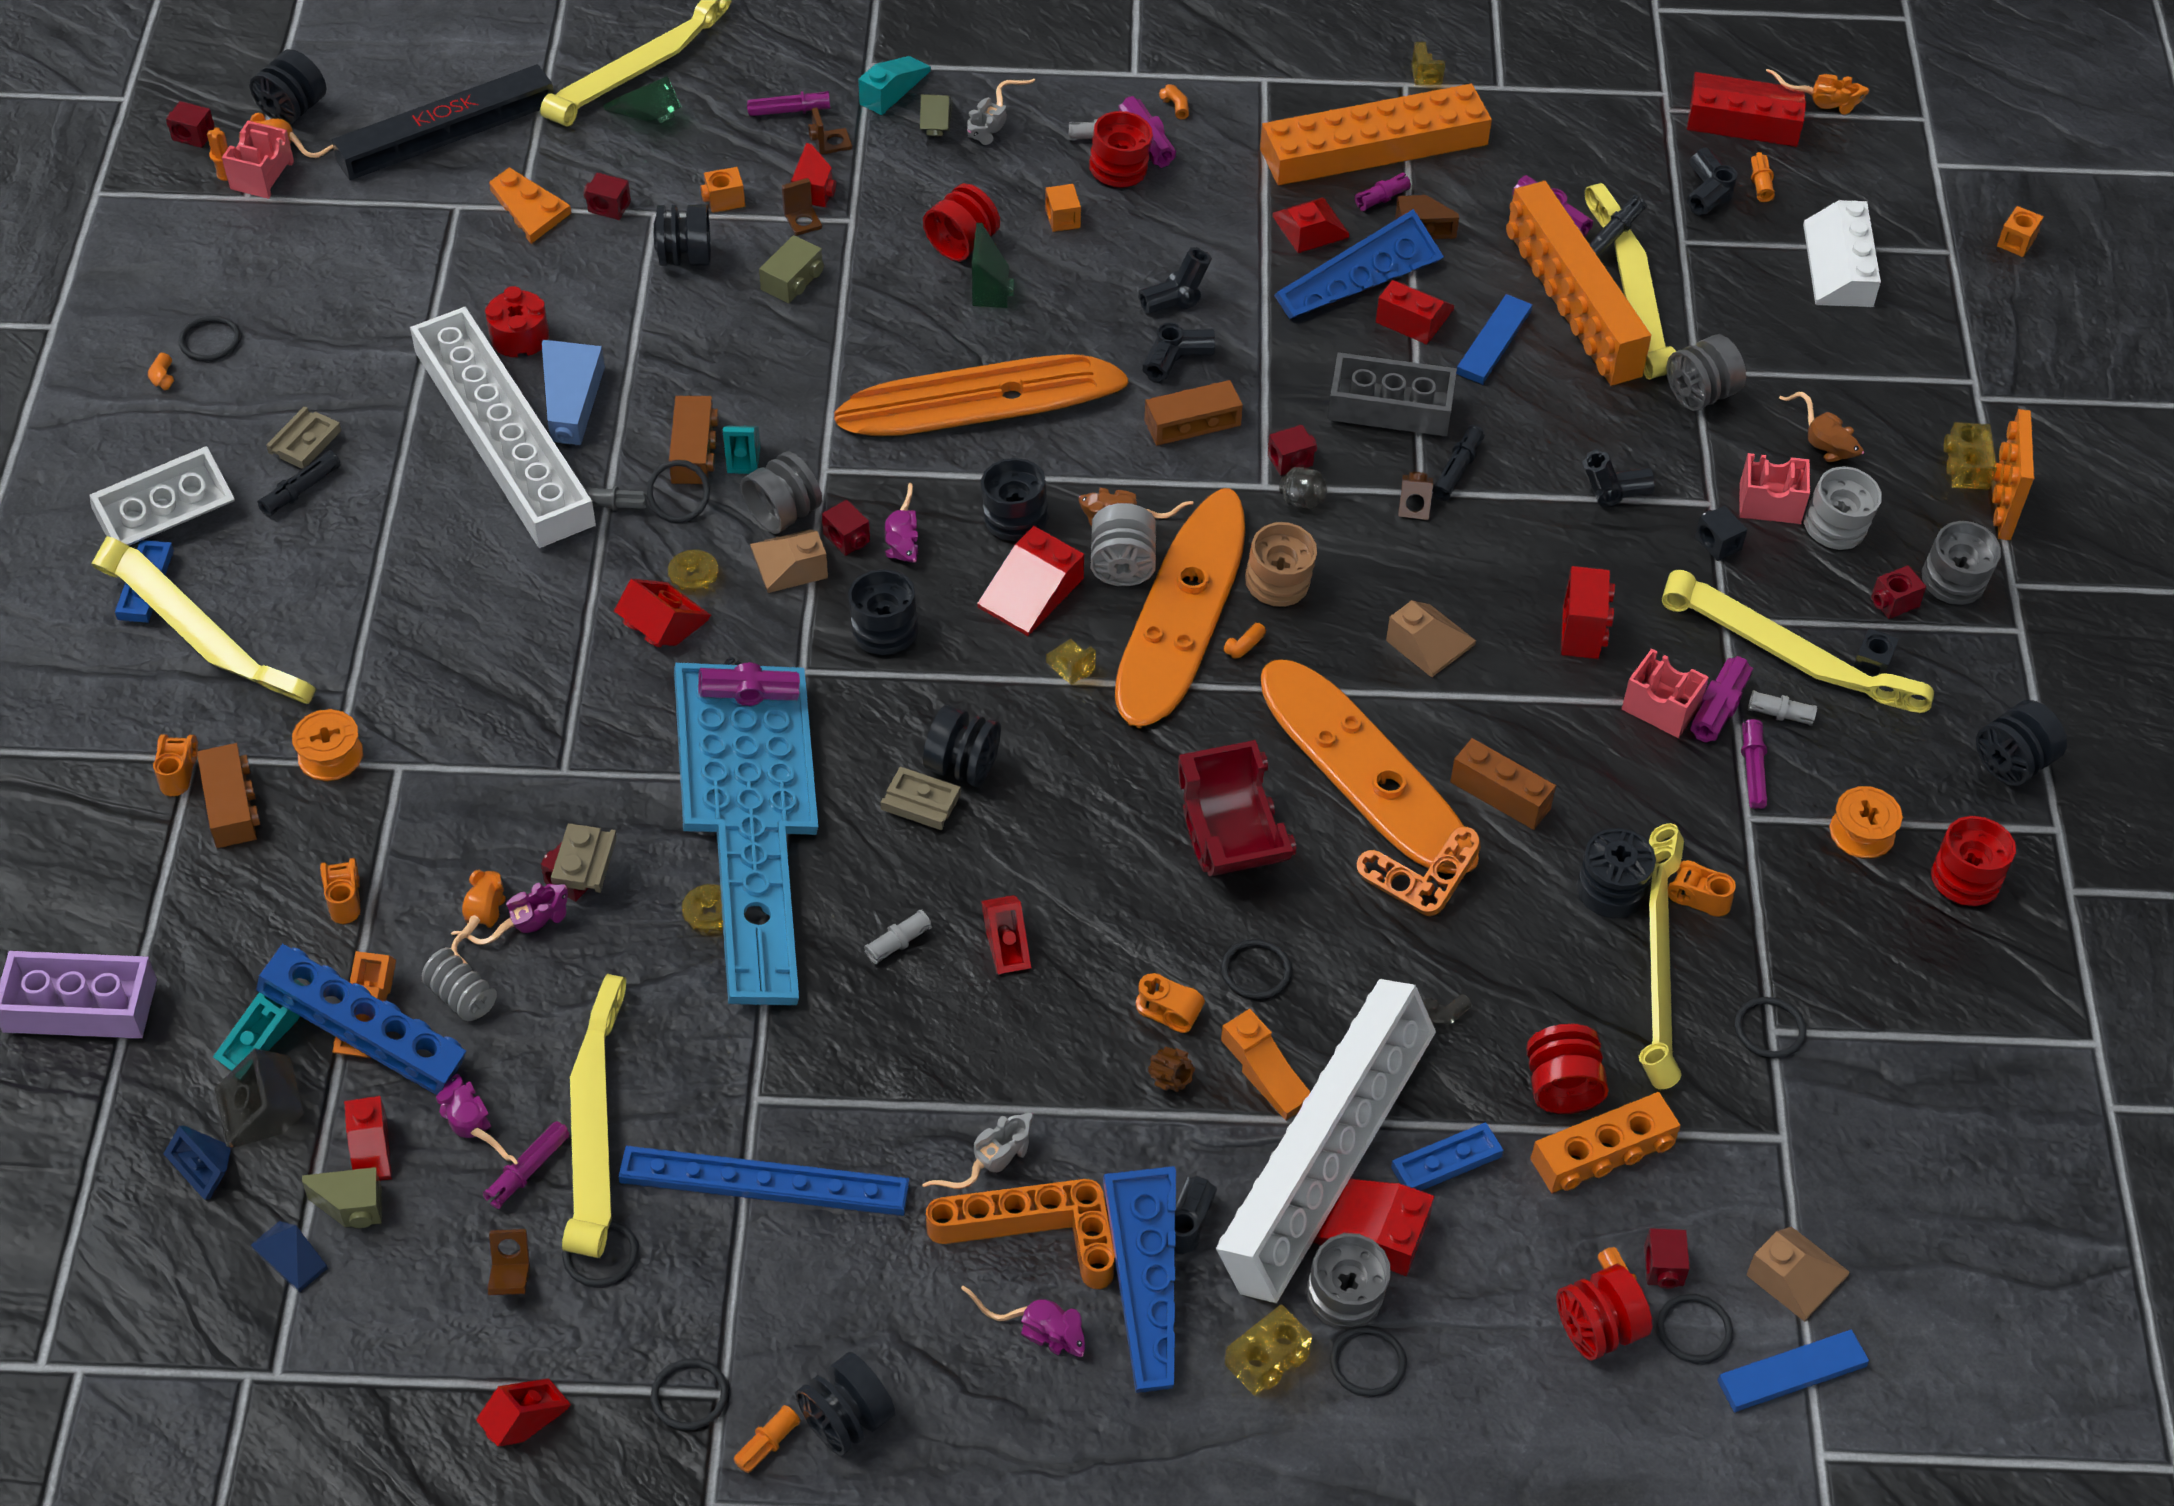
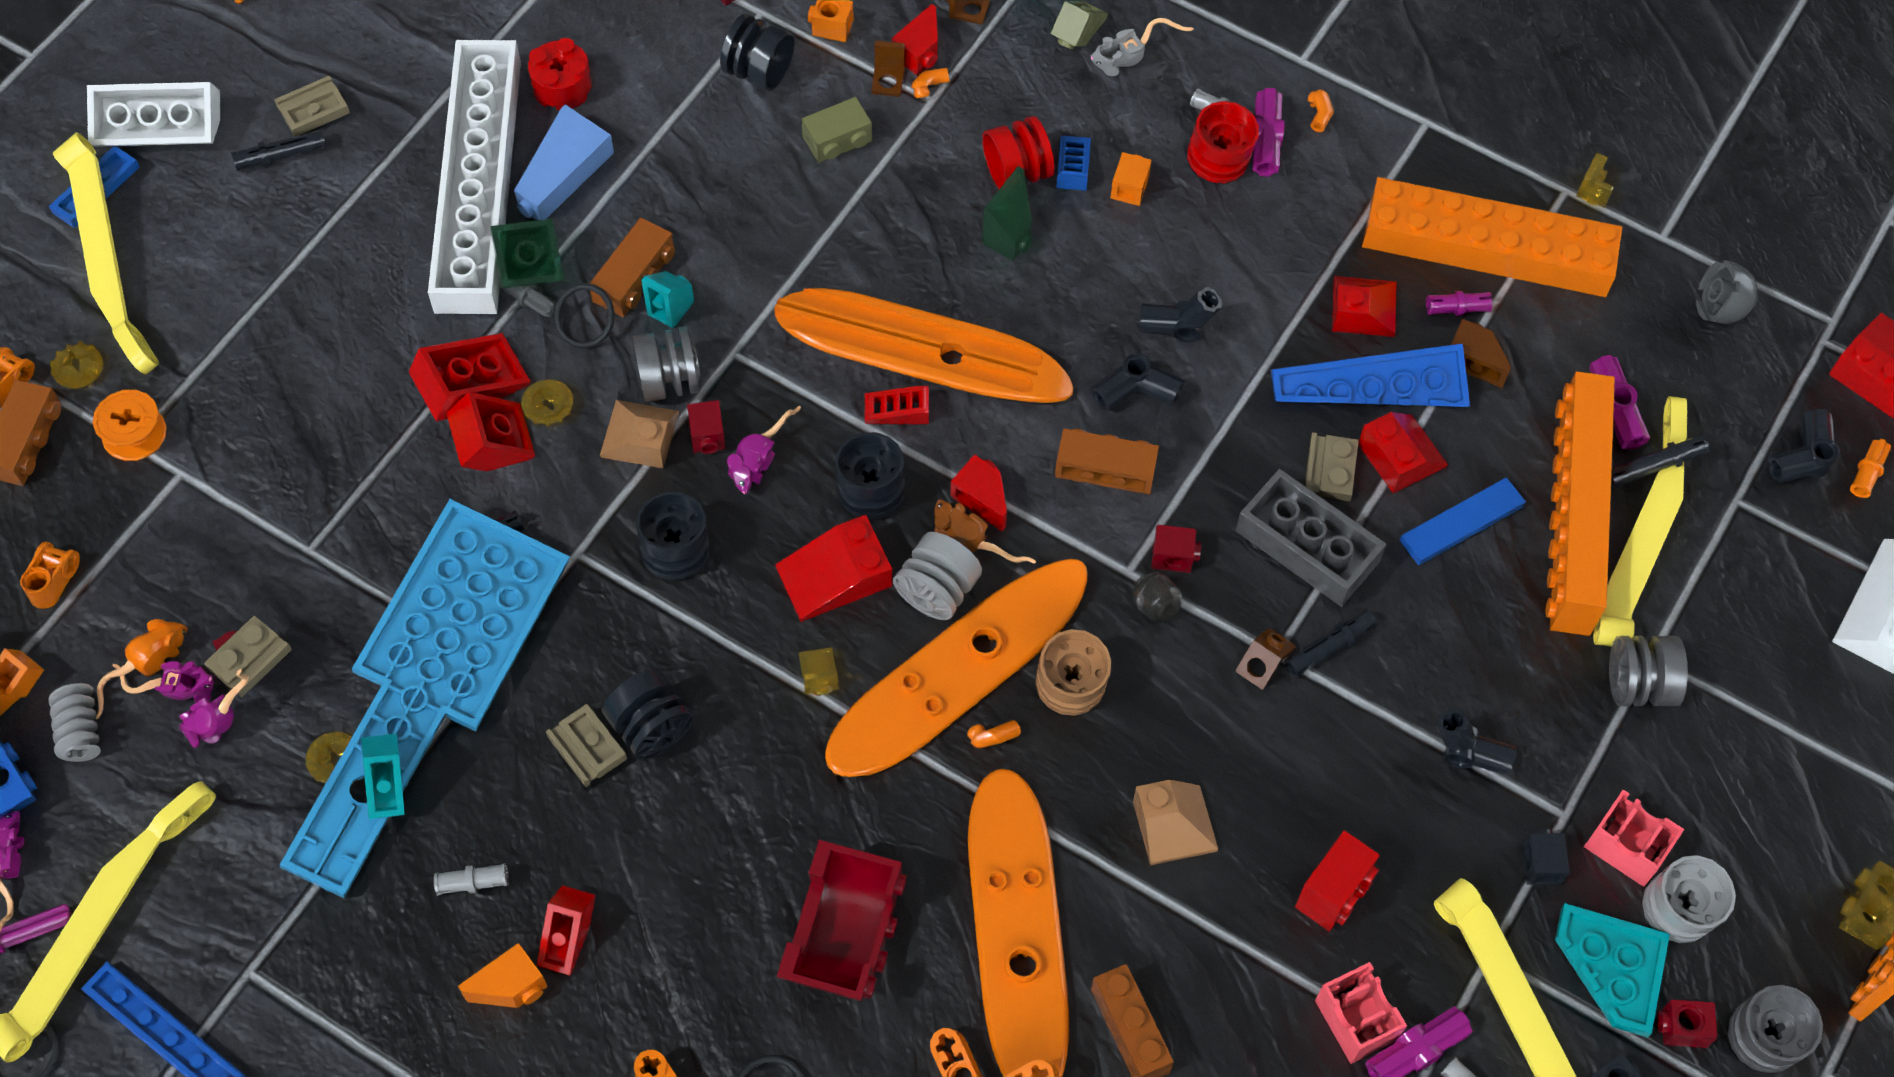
camera: 30 degrees right, 10 degrees up
(241, 734) = (90, 365): none -> clear yellow gear
(582, 921) = (211, 719): none -> magenta animal
(598, 460) = (527, 253): none -> clear green slope
(600, 575) = (472, 365): none -> red slope
(748, 684) = (497, 553): magenta piece -> none
(773, 887) = (382, 776): none -> teal slope
(838, 203) = (927, 79): none -> orange arm
(985, 992) = (505, 981): none -> orange slope
(1006, 433) = (906, 395): none -> red slope
(1012, 219) = (1073, 179): none -> blue slope
(1111, 471) = (981, 491): none -> red slope
(1367, 338) = (1331, 466): none -> dark tan plate
(1578, 100) = (1727, 293): none -> dark grey cylinder
(1821, 578) = (1616, 964): none -> teal plate
(1828, 434) = (1736, 802): dark orange animal -> none

